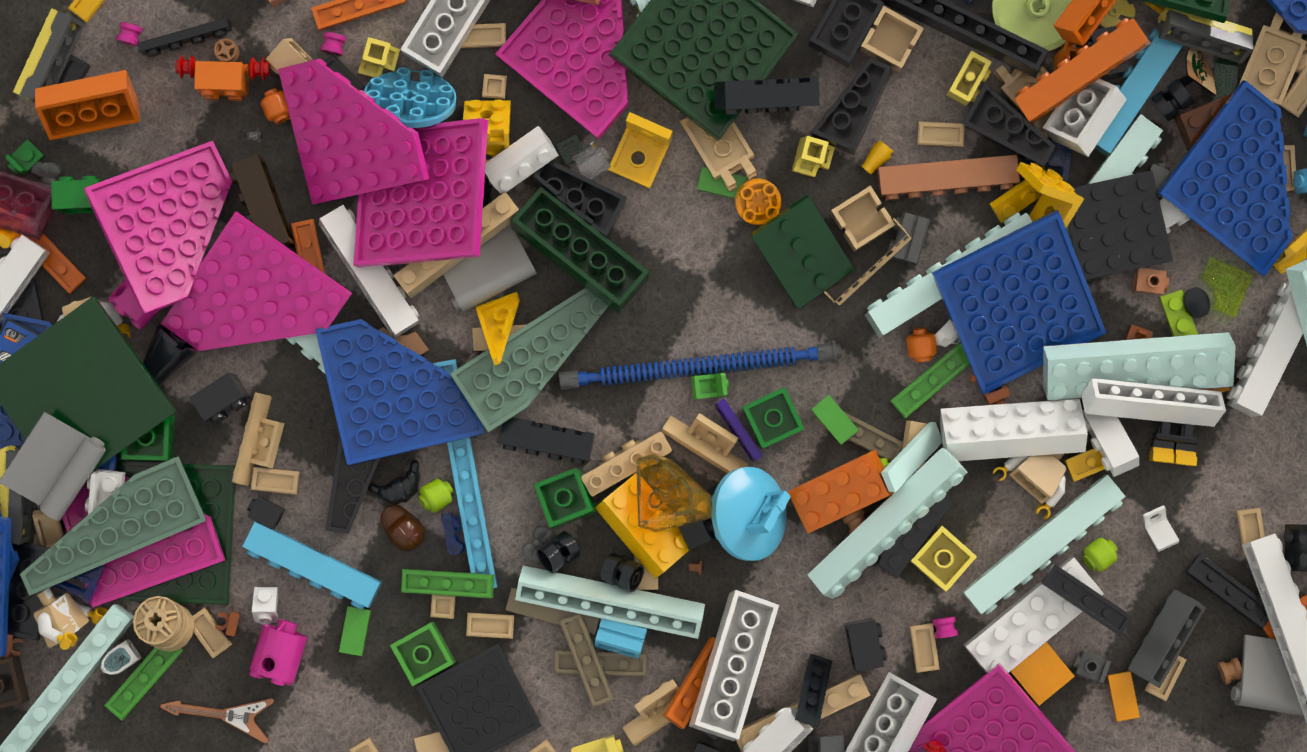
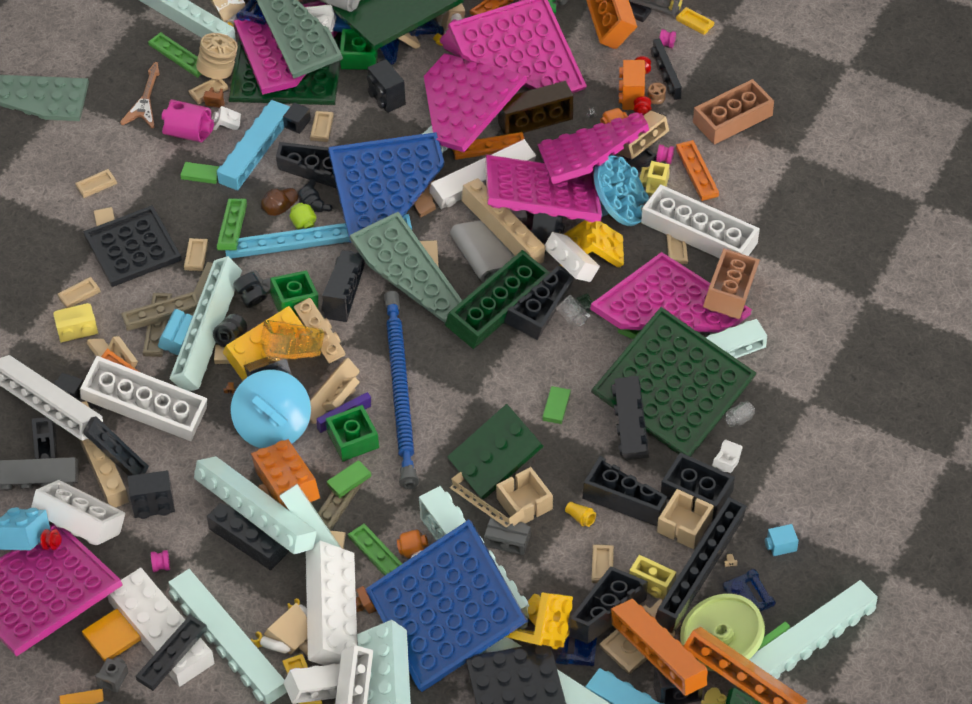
camera: 90 degrees right, 35 degrees down
(120, 658) = (192, 36): rock -> none
(166, 354) = (419, 56): black cone -> none
(259, 440) = (354, 112): tan bracket -> none
(422, 653) = (177, 207): bright green brick -> none
(443, 606) = (213, 225): tan tile -> none
(451, 526) = (277, 219): clear blue plate -> none
(494, 86) = (635, 255): tan tile -> none
(496, 322) = (440, 248): yellow wing -> none
(647, 139) = (591, 342): yellow bracket -> none
(709, 385) = (382, 392): bright green bracket -> none
(722, 156) = (579, 403): tan tile -> none
(757, 201) = (543, 424): light orange tile -> none
(811, 155) = (579, 463): light yellow brick -> none
(924, 647) = (142, 548): tan tile -> none
(943, 558) = (221, 555): light yellow brick -> none
(948, 176) = (562, 555): nougat brick -> none
(1085, 117) = (618, 660): white brick -> none
(1100, 554) = (213, 680): lime head -> none

